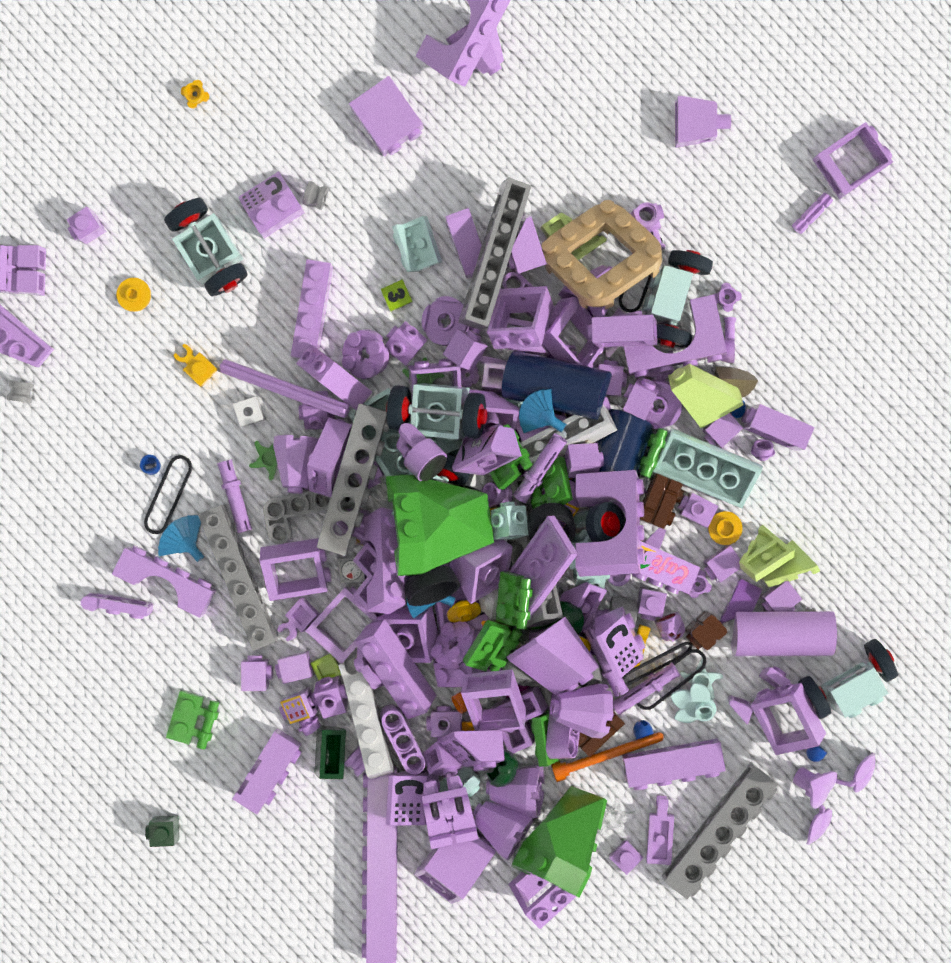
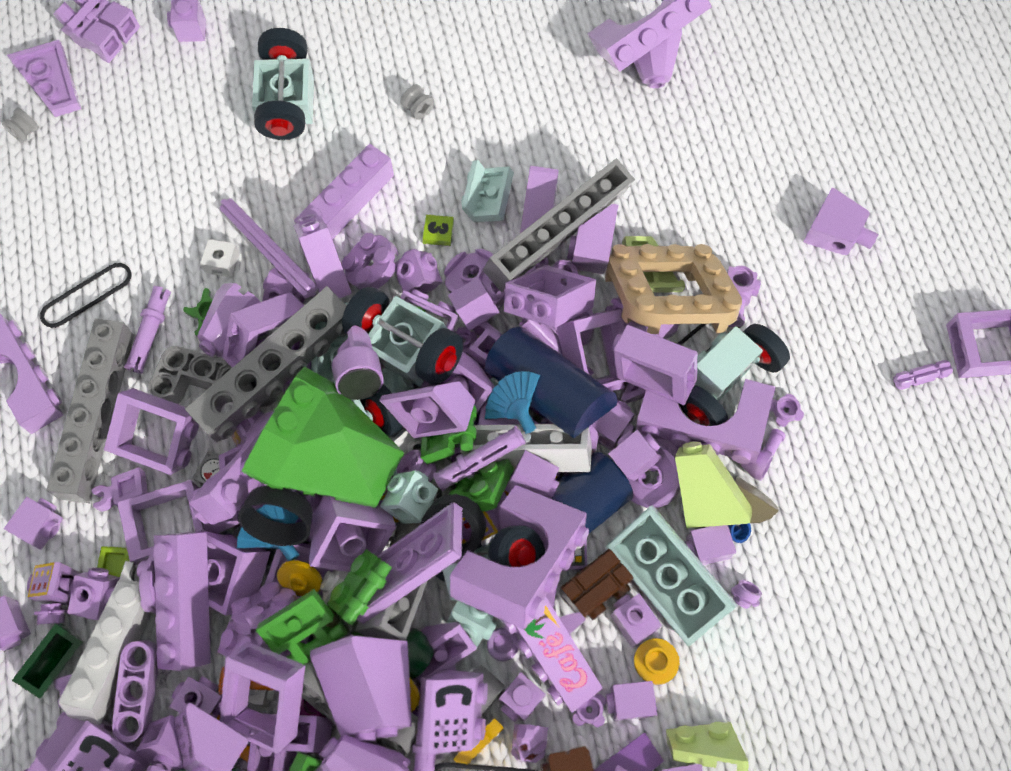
camera: 30 degrees right, 20 degrees down
(133, 294) = (188, 100): yellow piece -> none
(150, 460) = (91, 252): blue hinge -> none
(181, 537) = (65, 343): dark azure hand -> none
(197, 367) = (201, 192): yellow plate -> none
(271, 205) = (369, 93): lavender slope -> none
(294, 667) = (80, 539): lavender brick -> none
(387, 116) = (528, 70): lavender brick -> none
(655, 444) = (611, 527): bright green plate -> none
(765, 554) = (688, 715): yellowish green wing -> none
(777, 427) = (777, 572): lavender window -> none

